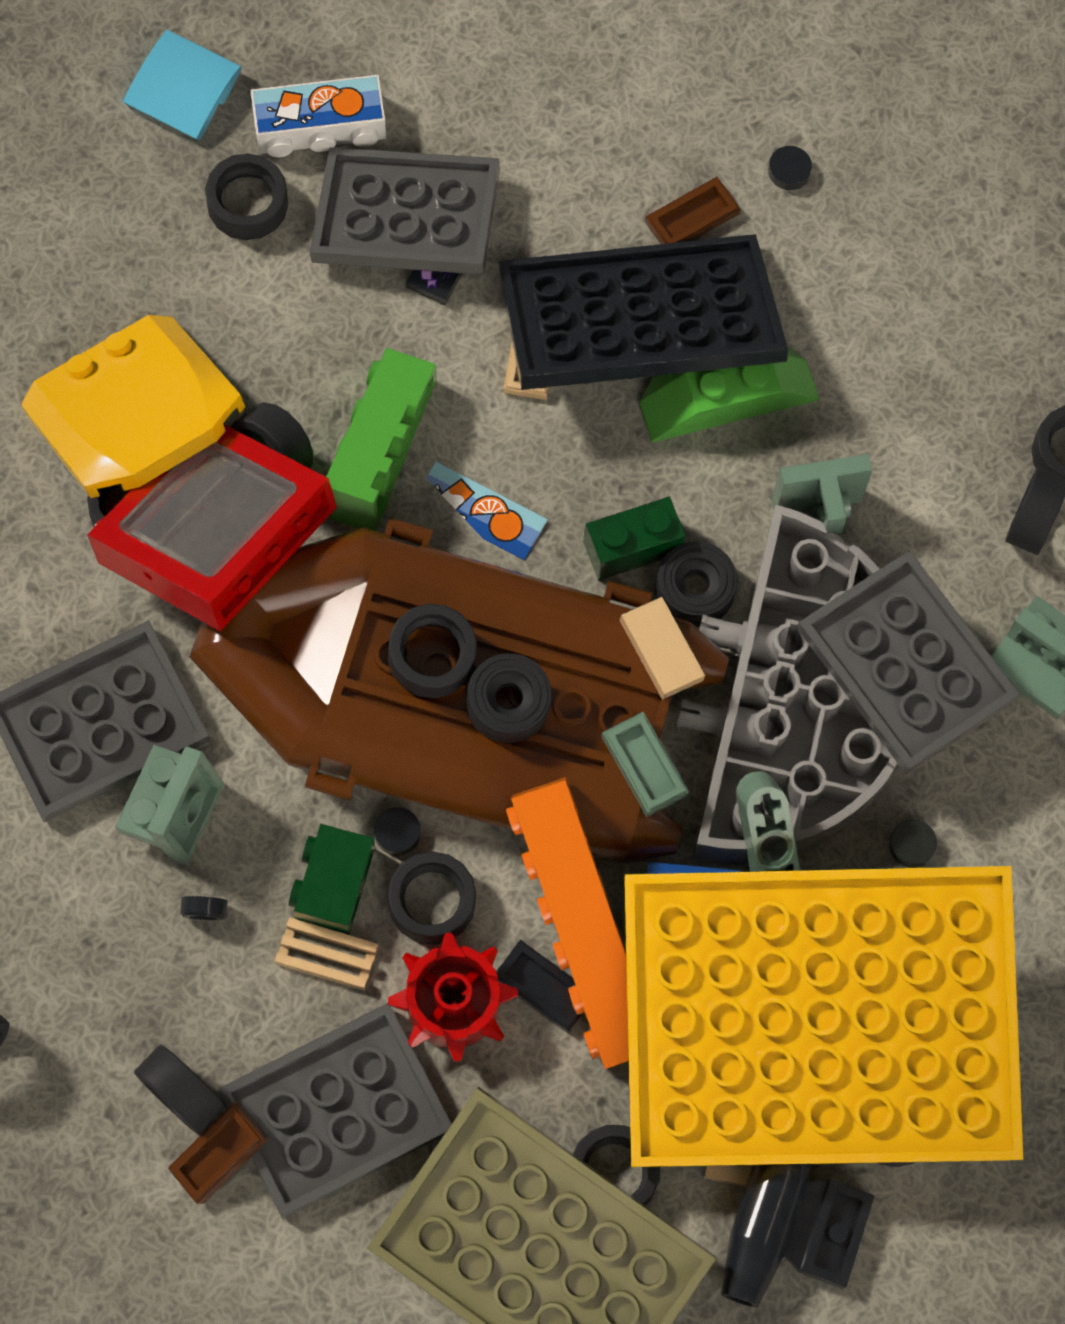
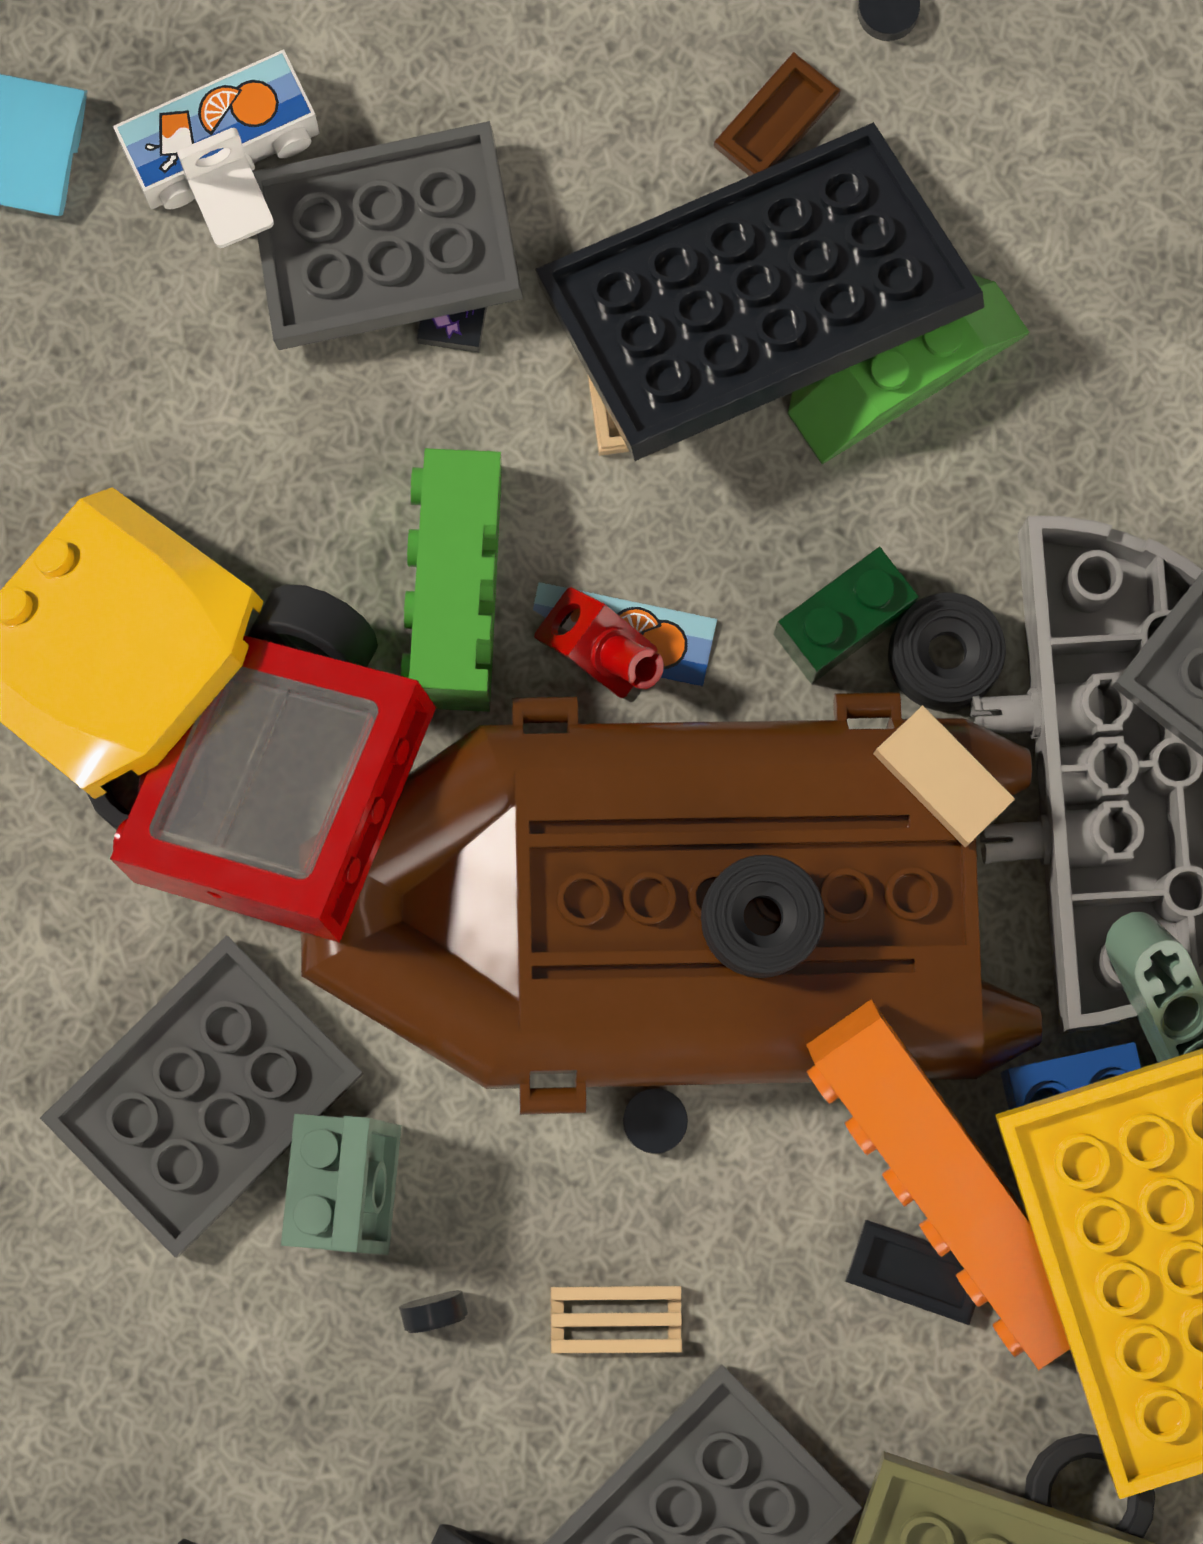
camera: 15 degrees left, 10 degrees up
(249, 226) = (156, 233): black tyre -> none
(310, 146) = (225, 188): none -> white bracket
(333, 878) = (593, 1218): dark green brick -> none
(427, 863) = (780, 1192): black tyre -> none
(432, 616) = (665, 840): black tyre -> none
(452, 970) = (819, 1371): red brick -> none
(463, 509) = (602, 644): none -> red bracket
(644, 764) = (971, 947): sand green tile -> none
(824, 489) = (1086, 476): sand green bracket -> none

